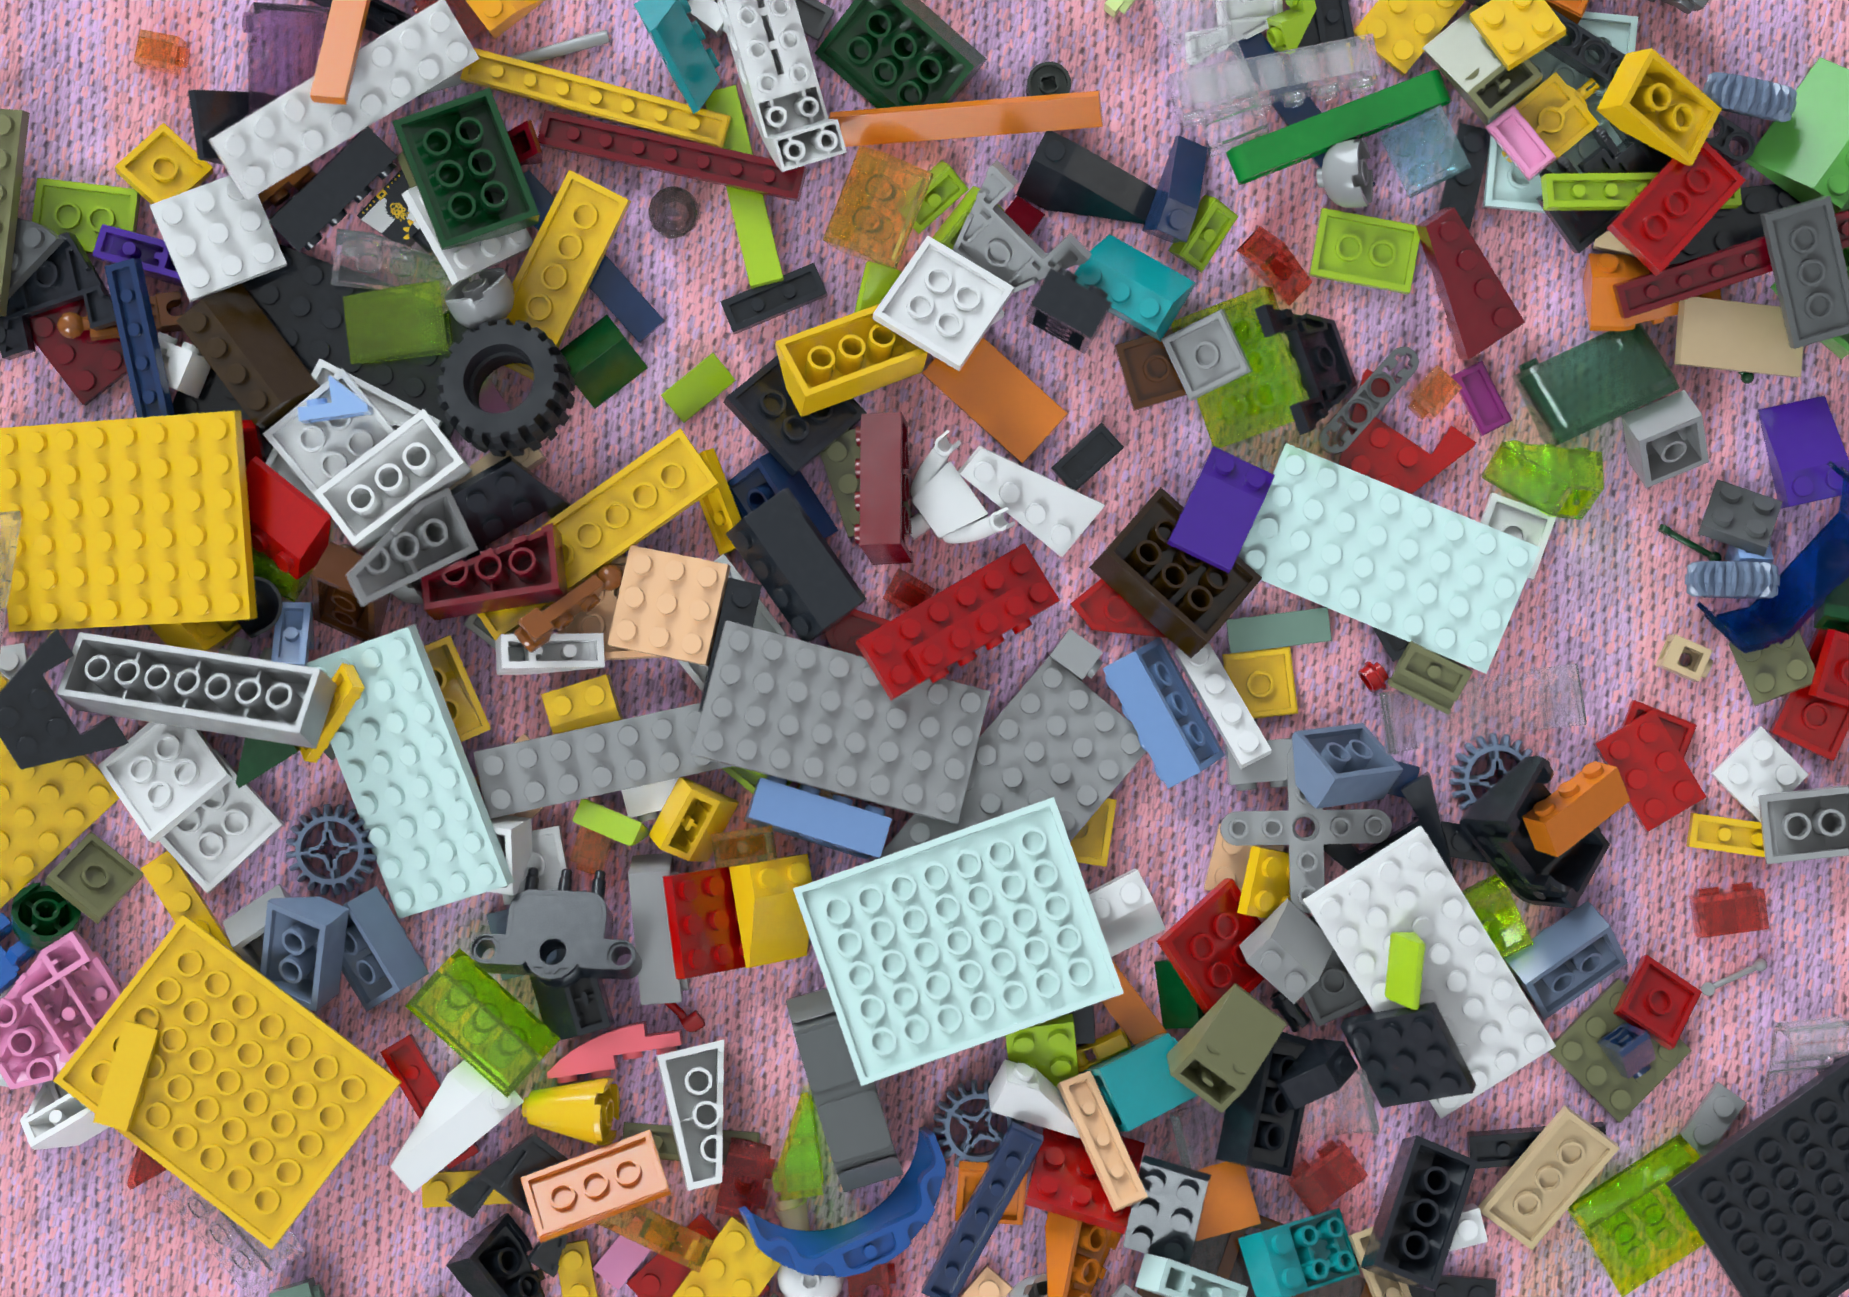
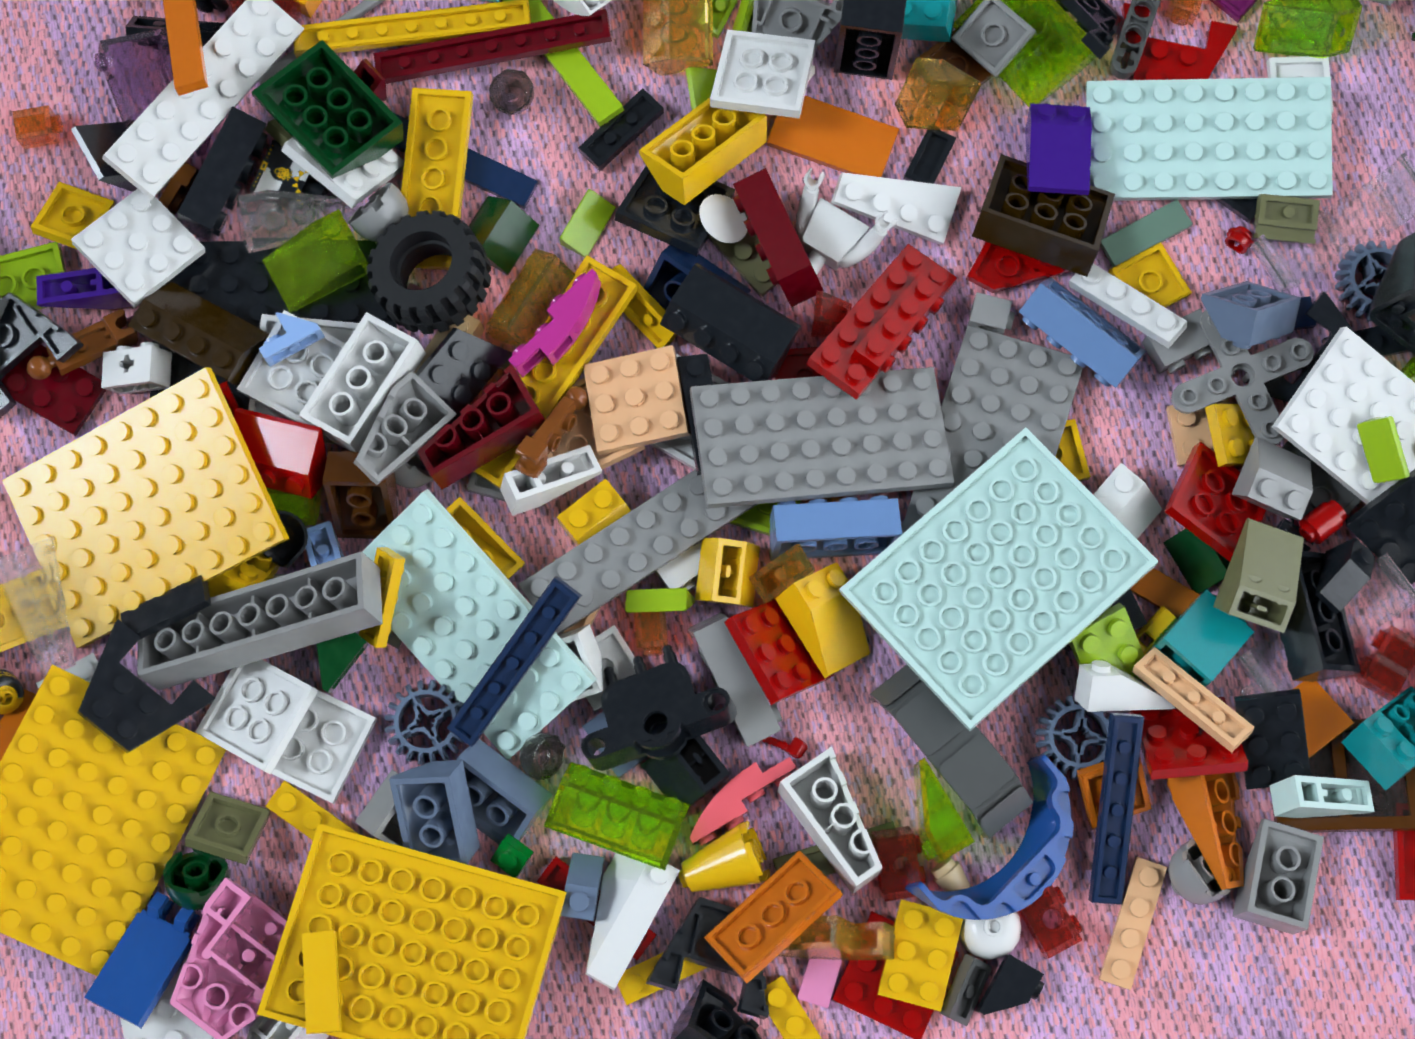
camera: 25 degrees left, 10 degrees down
(111, 636) = (168, 608): none -> black tile
(139, 338) = (100, 348): dark blue plate -> none
(365, 1017) = (511, 856): none -> green plate
(421, 1079) = (583, 887): none -> sand blue slope
(433, 930) = (542, 755): none -> clear smoke hair
(436, 833) = (514, 661): none -> dark blue tile
(602, 454) = (529, 298): none -> clear yellow slope
(633, 492) = (569, 317): none -> dark pink slope
(835, 444) = (722, 218): none -> white sticker
(1116, 398) = (936, 95): none -> clear yellow slope
(1319, 1011) = (1322, 522): none -> red brick

